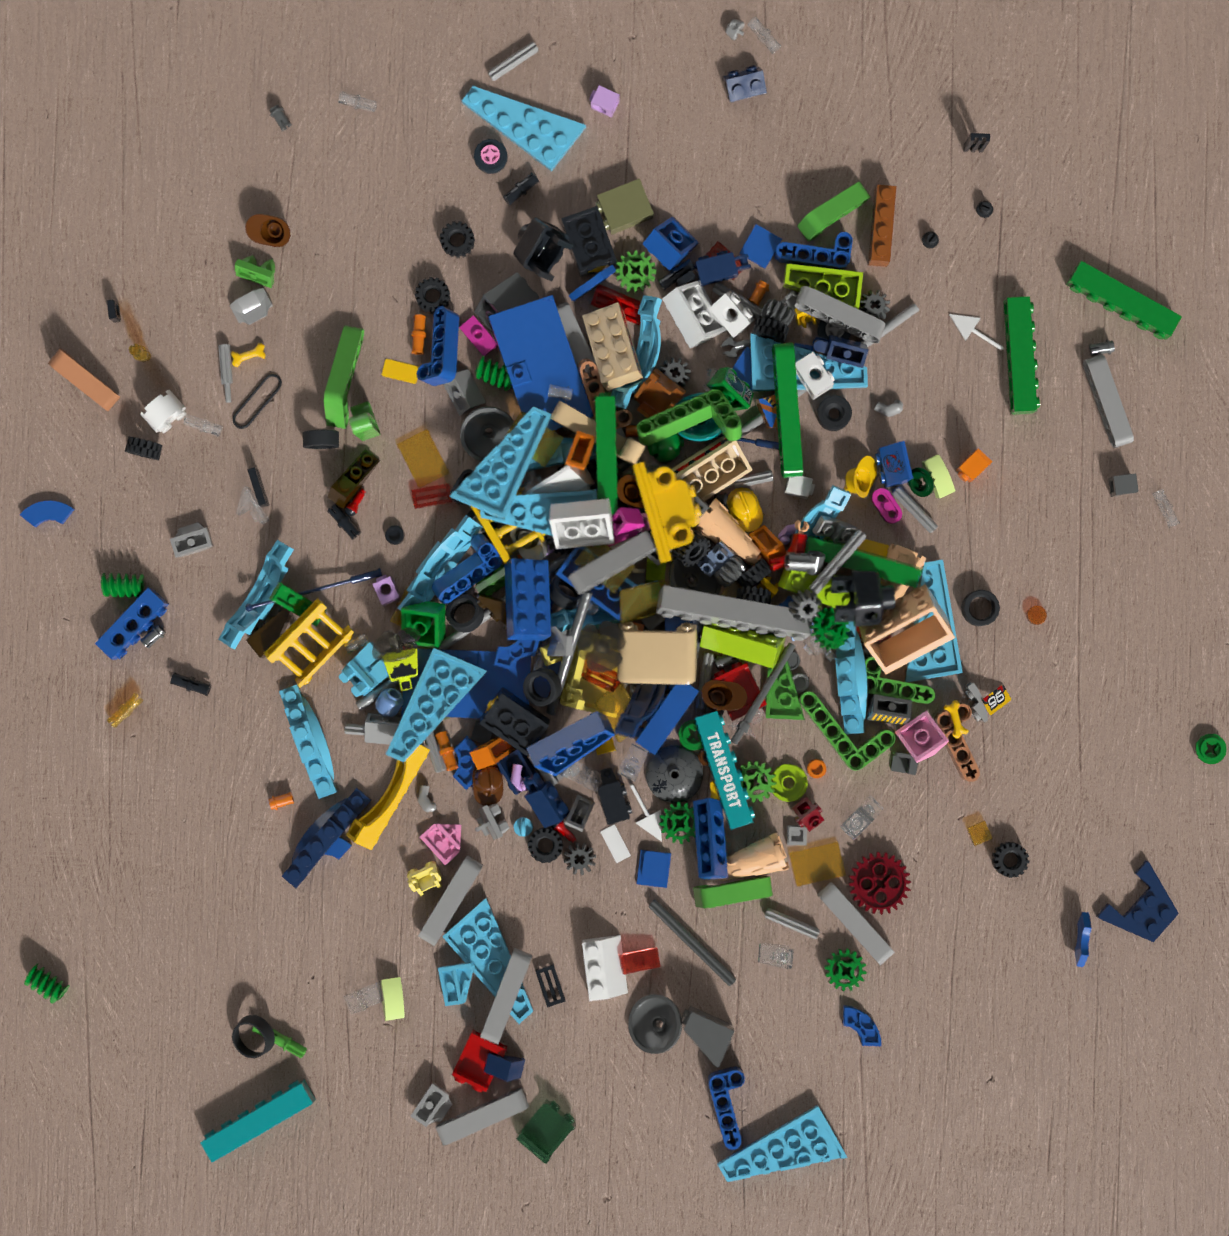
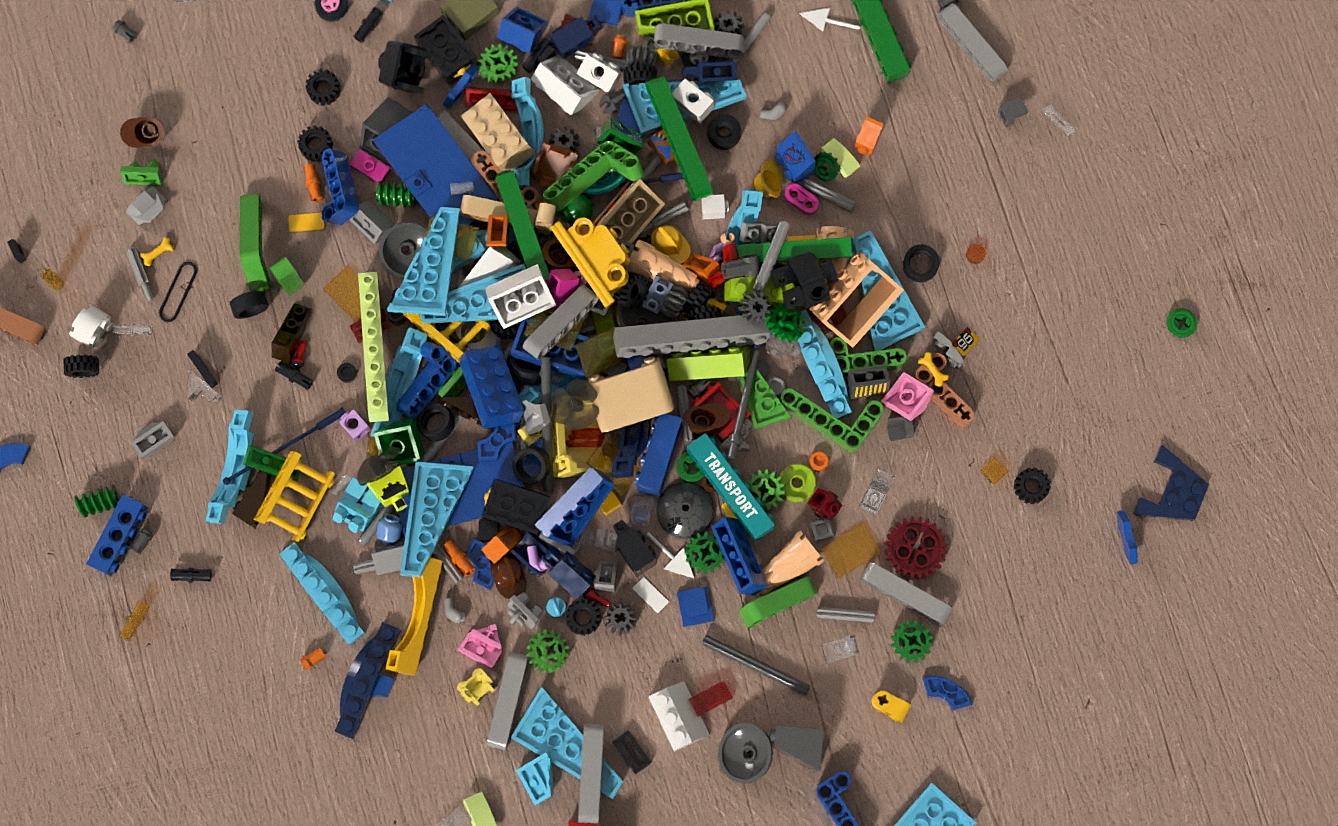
camera: 20 degrees left, 10 degrees down
(426, 522) = (373, 347): none -> yellowish green brick
(509, 863) = (539, 647): none -> bright green gear
(806, 1024) = (894, 706): none -> yellow piece

